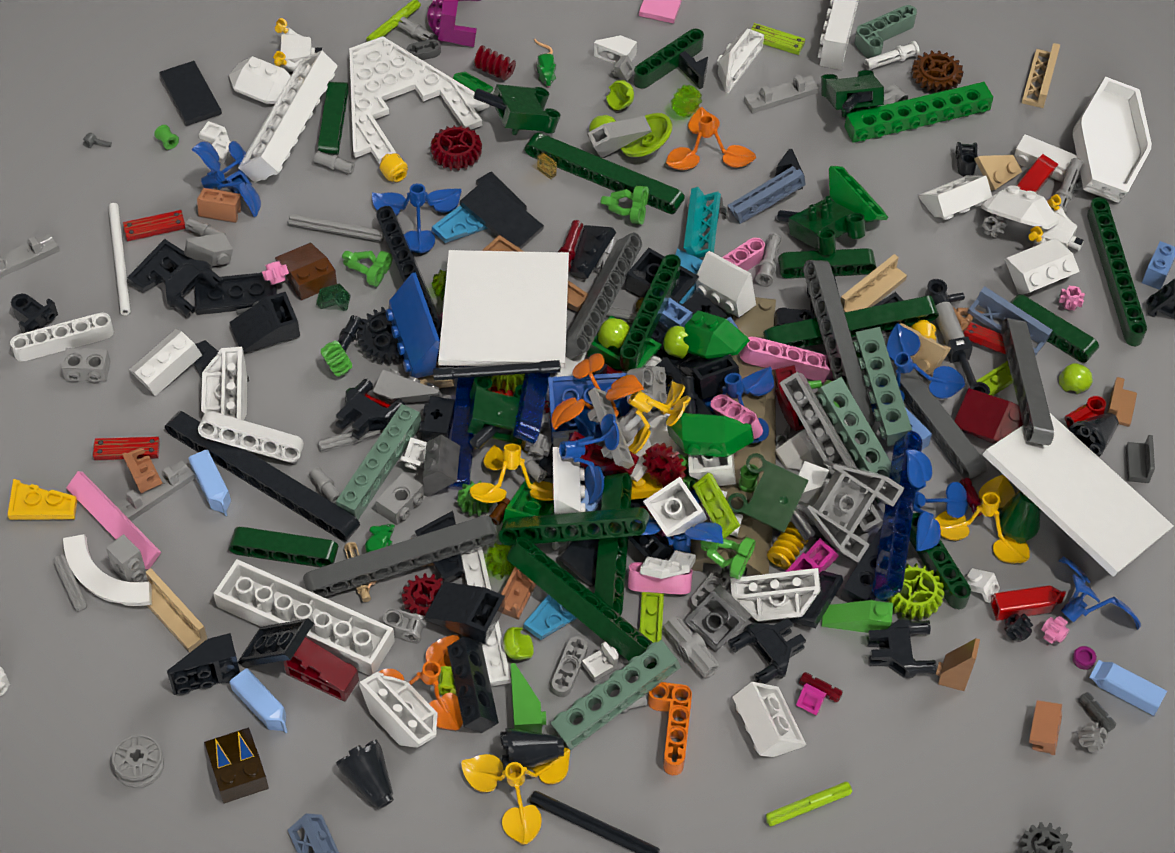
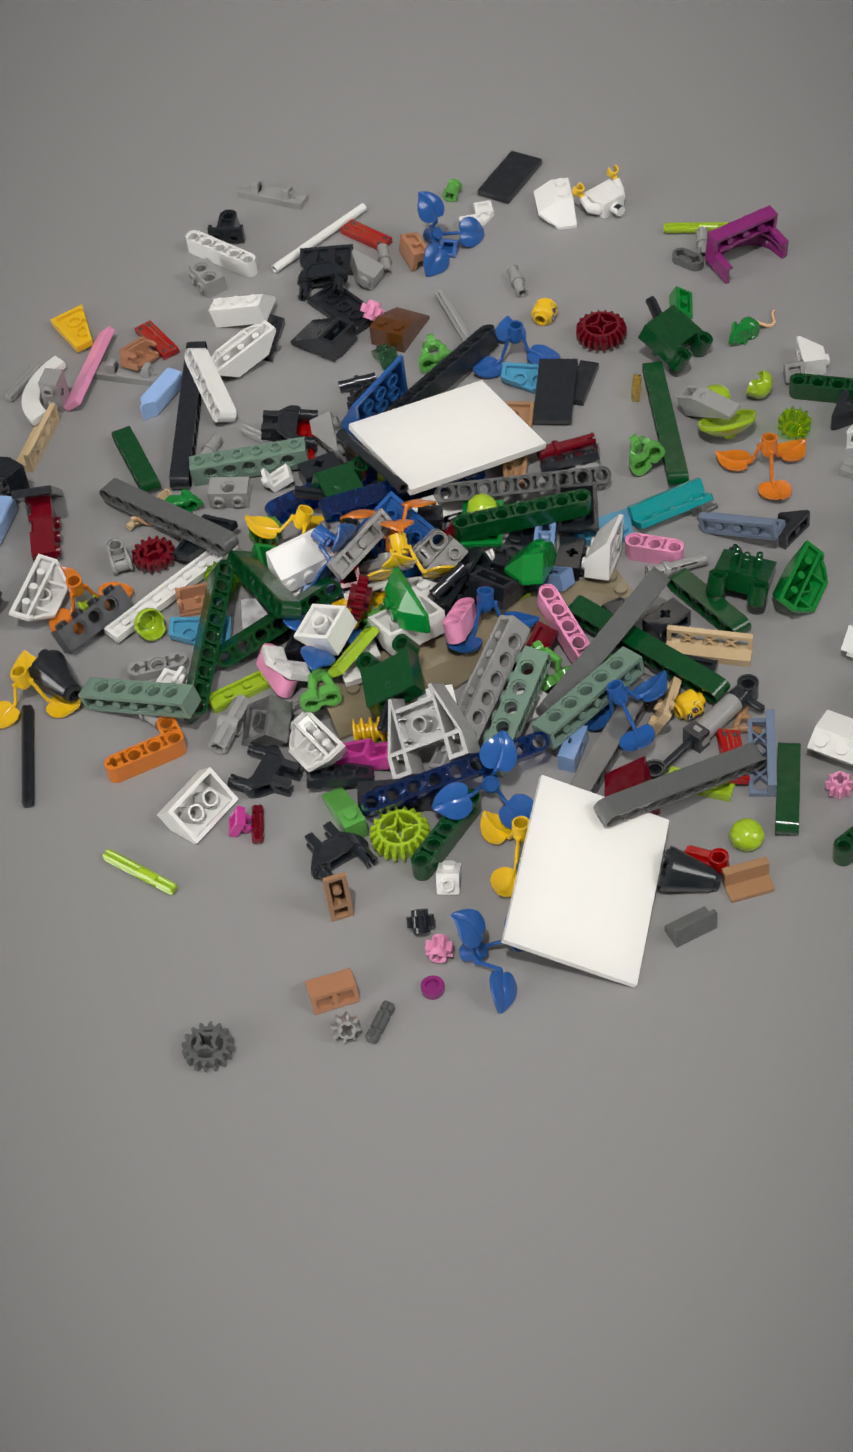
camera: 65 degrees right, 5 degrees down
(90, 139) = (412, 160): dark grey hand -> none
(271, 601) = (80, 503): white brick -> none
(288, 117) = (529, 228): white brick -> none
(333, 118) = (560, 254): dark green beam -> none
(336, 358) = (324, 386): bright green gear -> none
(385, 71) = (637, 251): white wing -> none
(440, 464) = (268, 487): flat silver slope -> none
(466, 610) = (148, 578): black slope -> none
(494, 64) = (713, 299): dark red piece -> none
(526, 705) = (102, 657): bright green slope -> none
(674, 343) = (507, 547): lime hair -> none
(1028, 601) = (442, 906): red piece -> none
(1128, 686) = (421, 1032): light blue piece -> none

